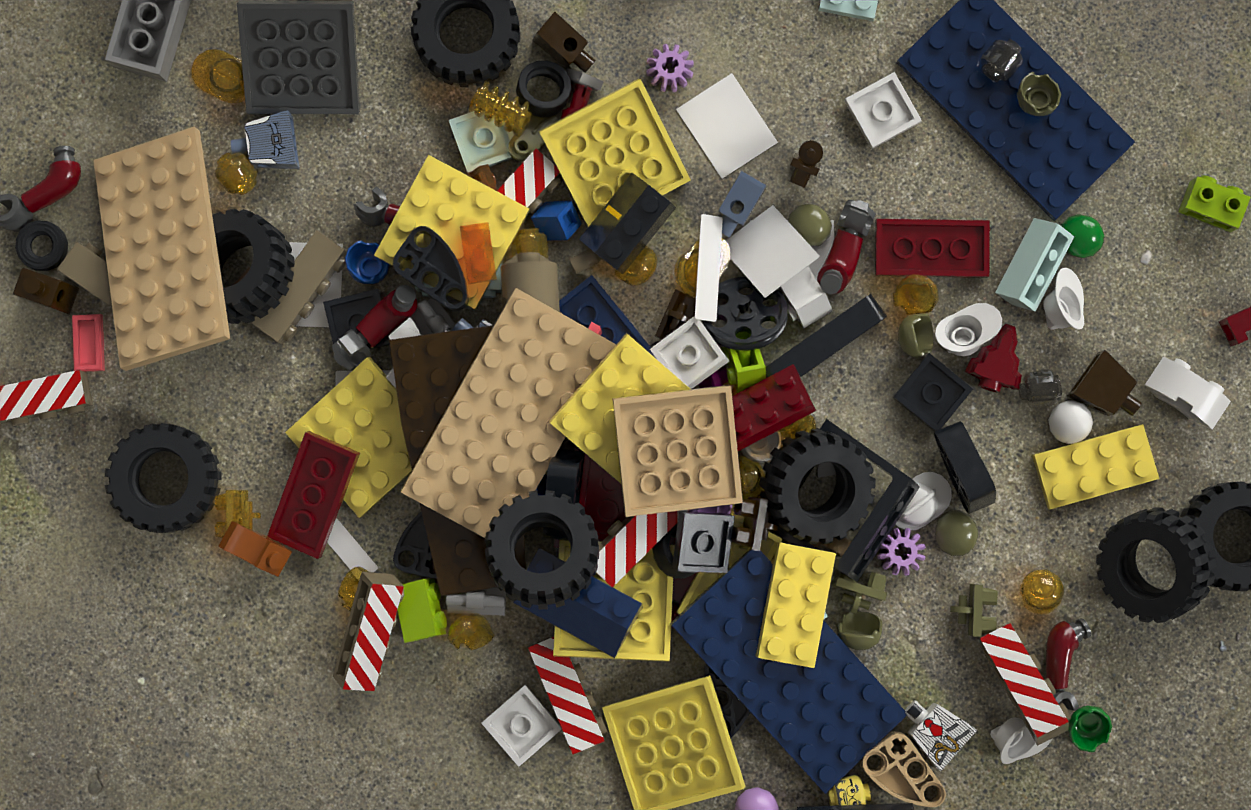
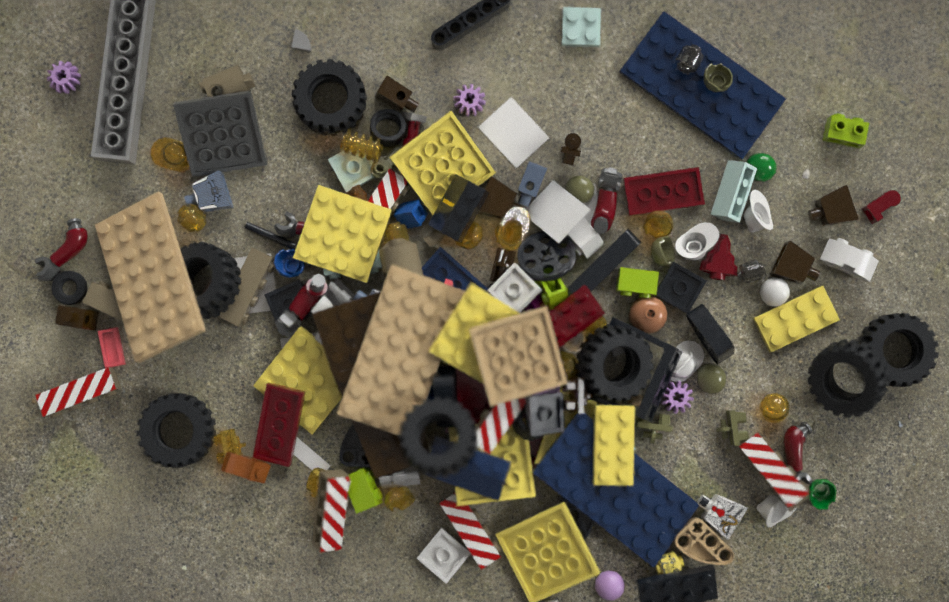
camera: 10 degrees left, 0 degrees up
(346, 218) = (271, 236): none -> black bar
(435, 259) = (333, 254): black beam -> none
(478, 253) = (362, 245): clear orange plate -> none
(685, 221) = (499, 200): none -> dark brown torso
(708, 268) = (517, 228): white sticker -> none
(860, 630) = (658, 454): olive hair -> none
(865, 426) = (639, 318): none -> nougat cylinder
(871, 374) = (637, 281): none -> lime brick
(882, 110) = (615, 105): white plate -> none
(1179, 314) = (834, 208): none -> dark brown torso

